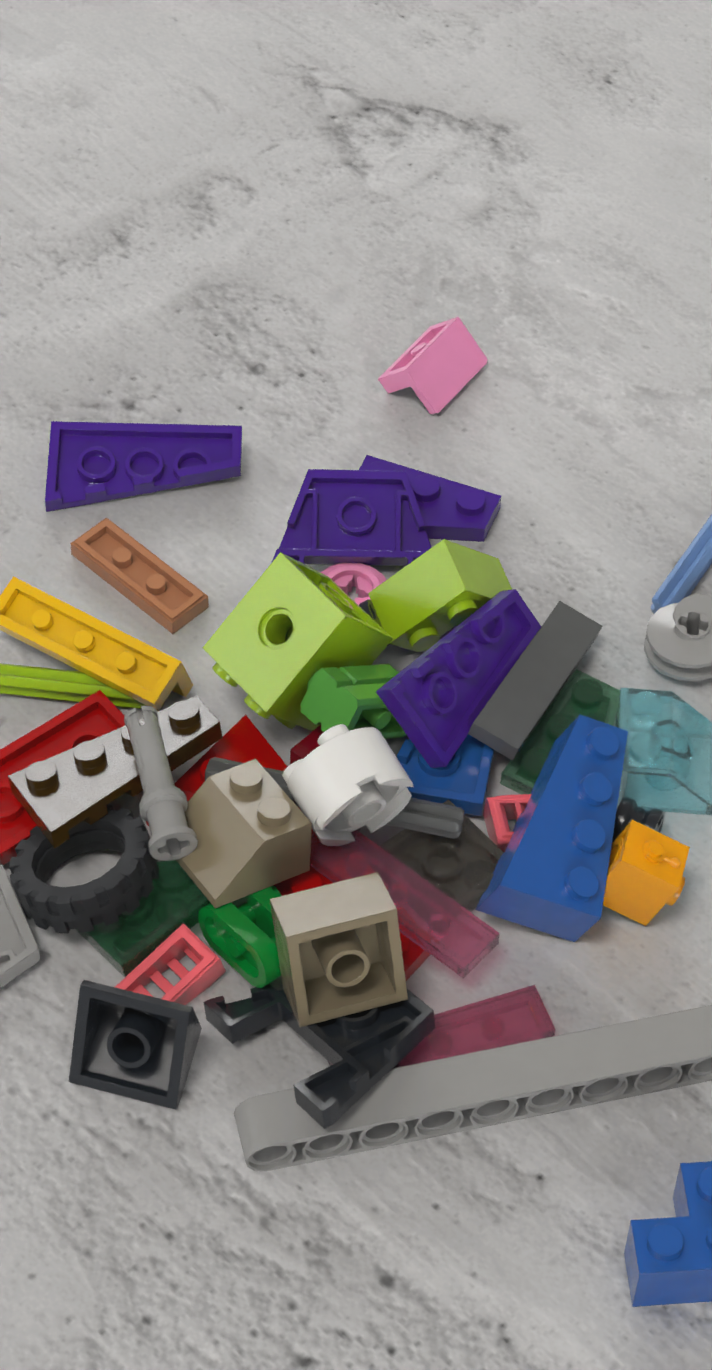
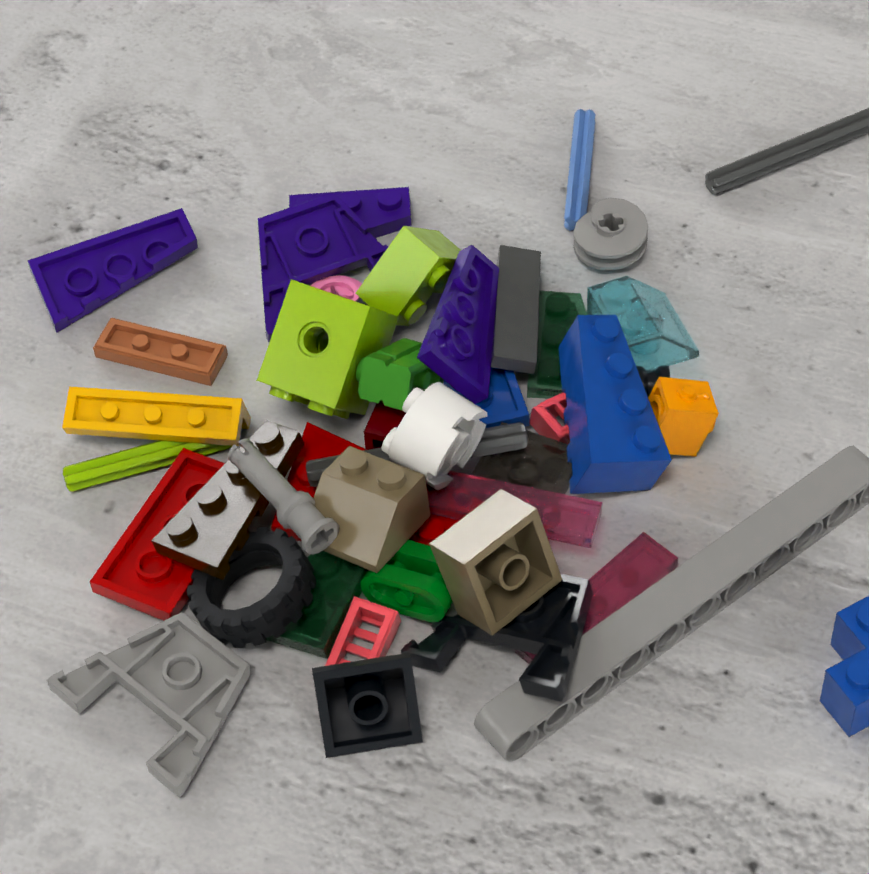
camera: 20 degrees left, 0 degrees up
(436, 365) = (303, 108): bright pink panel -> none

